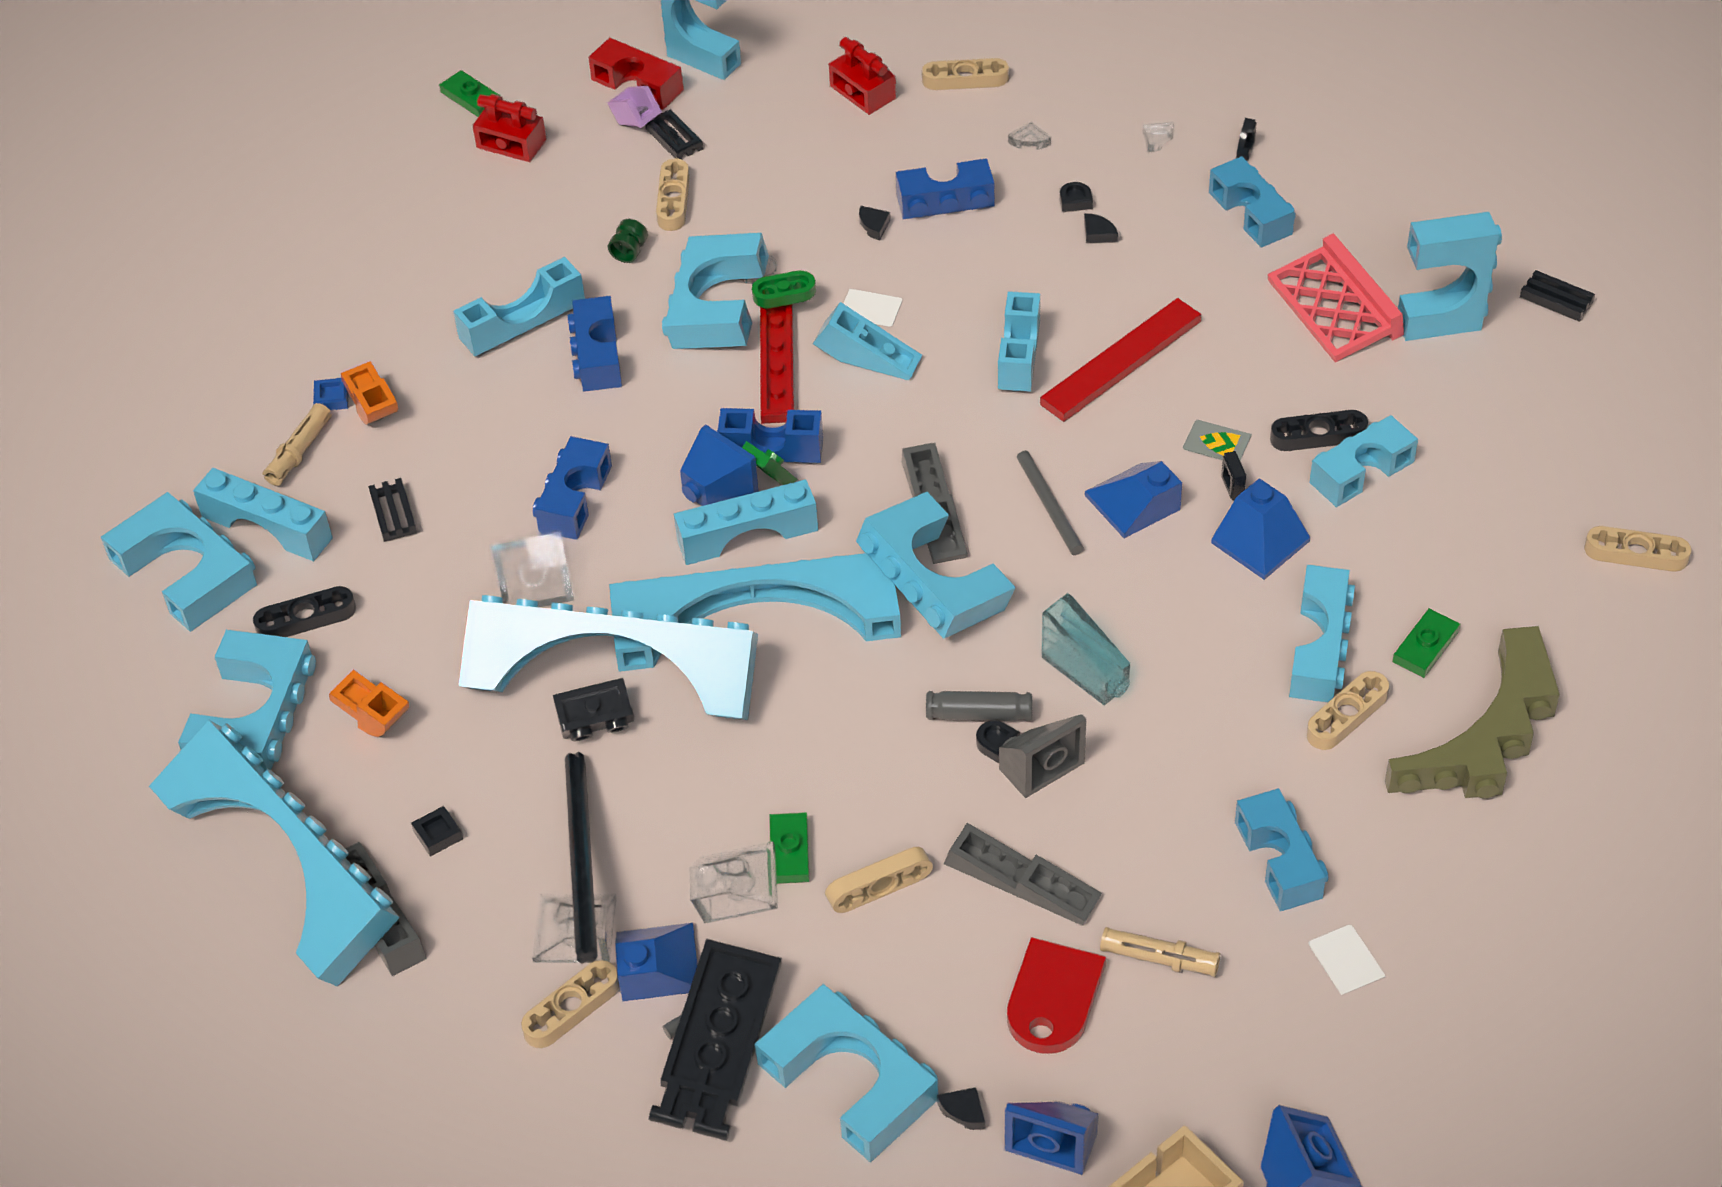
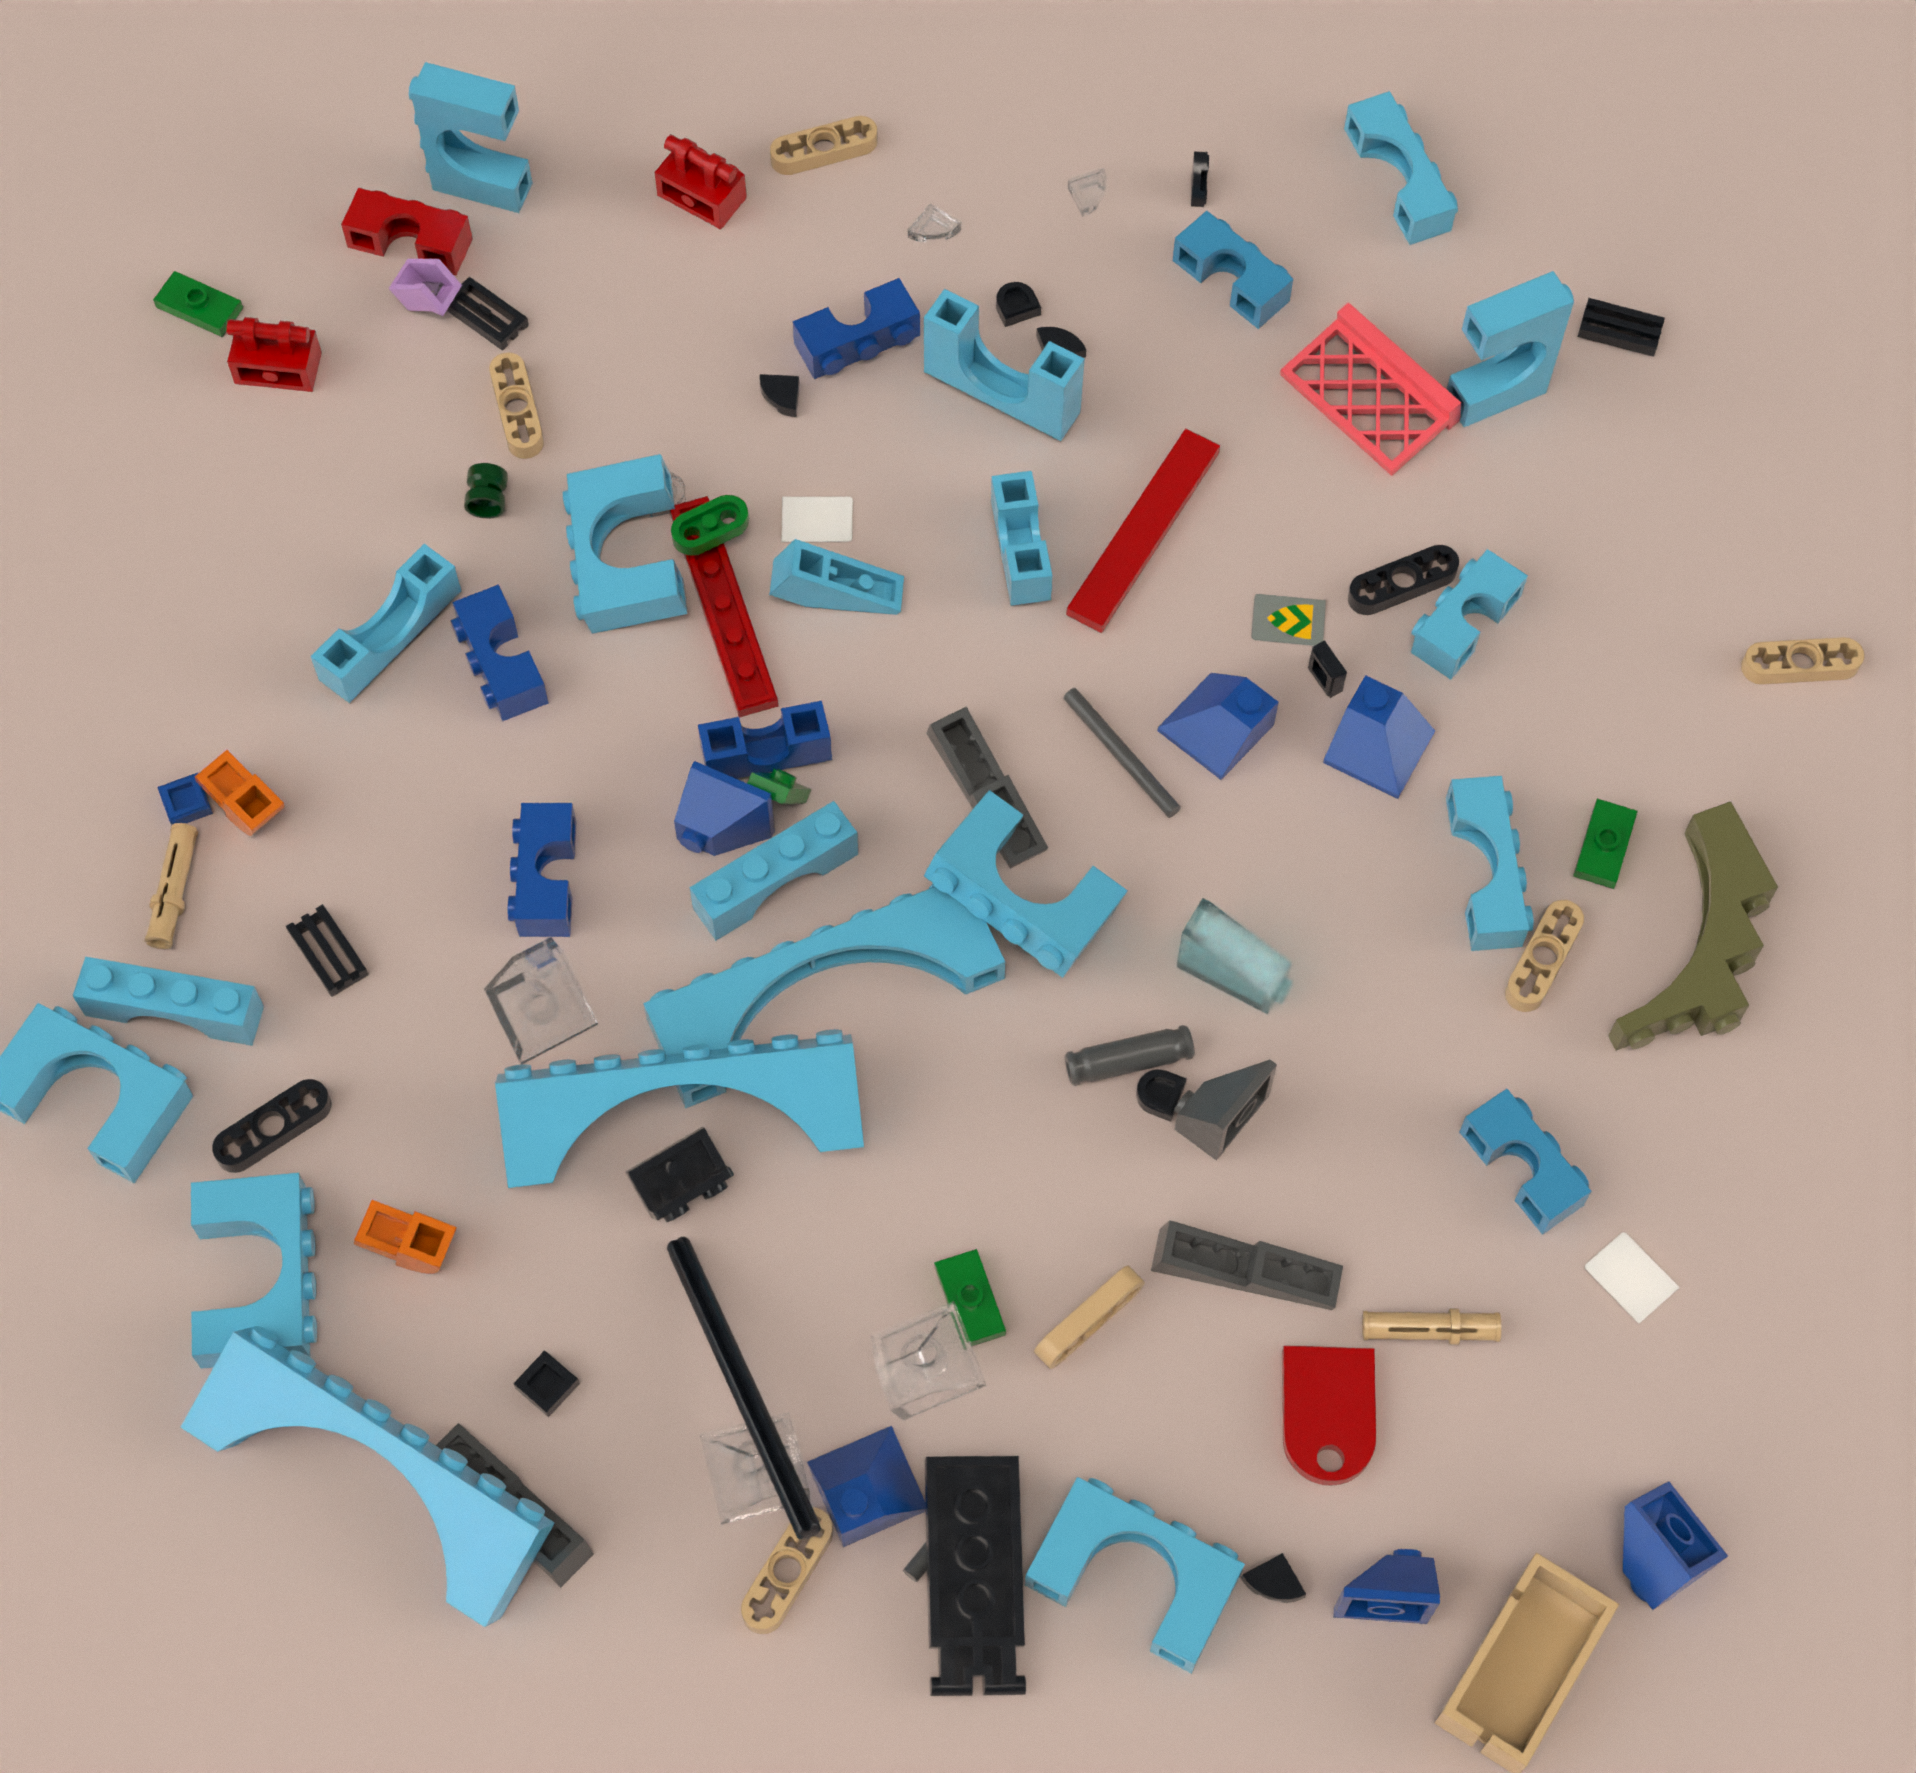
camera: 20 degrees left, 15 degrees up
(1011, 214) = (955, 354): none -> medium azure arch
(1403, 134) = (1382, 131): none -> medium azure arch

